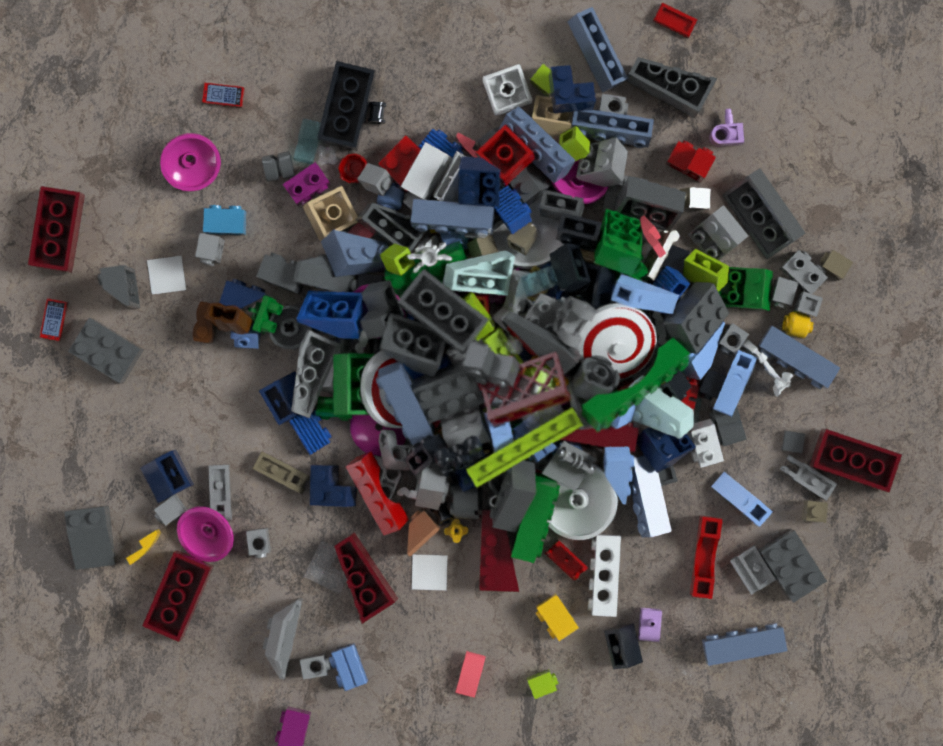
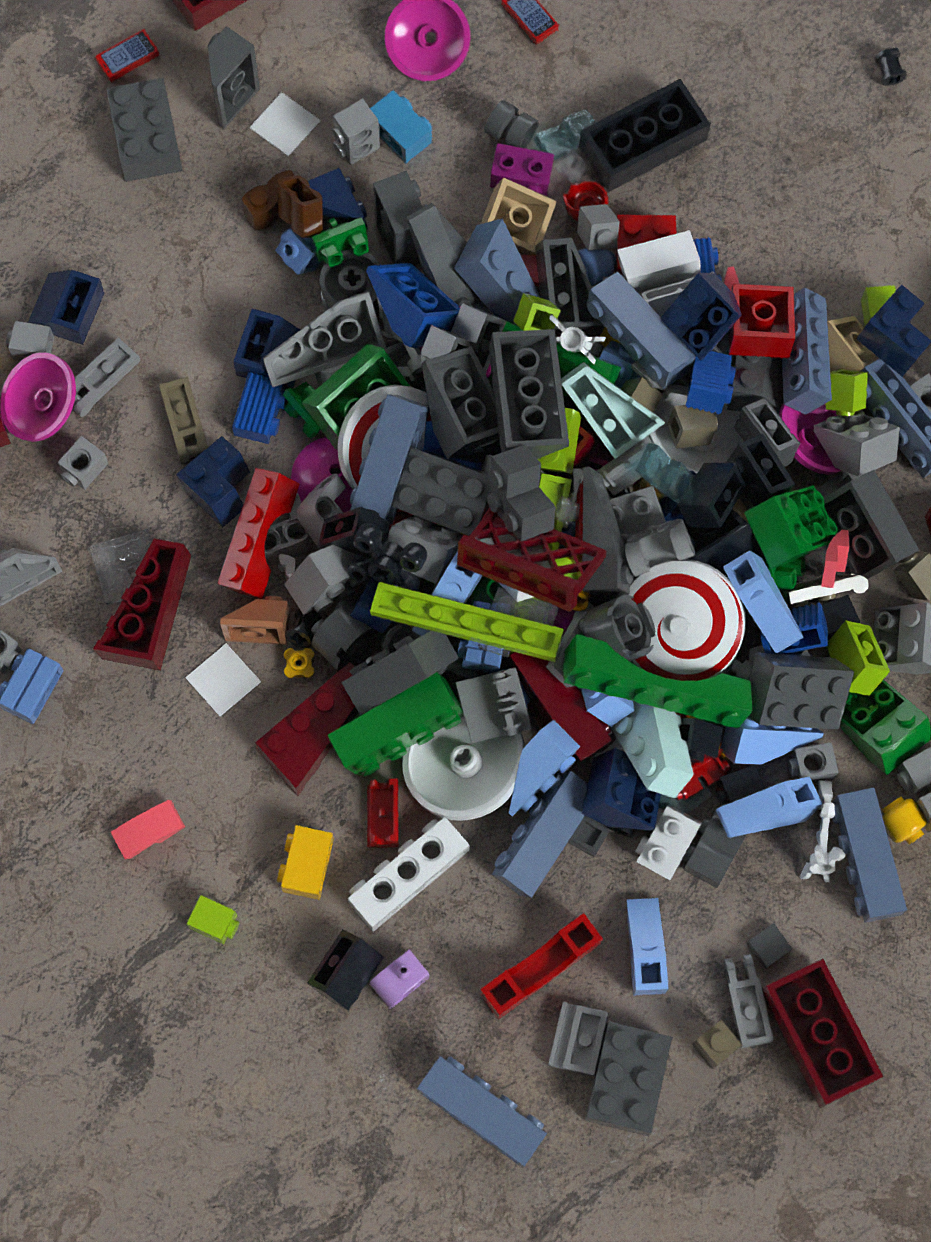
camera: 45 degrees right, 15 degrees down
(377, 112) = (668, 174): black bush -> none
(513, 78) = (843, 267): white brick -> none

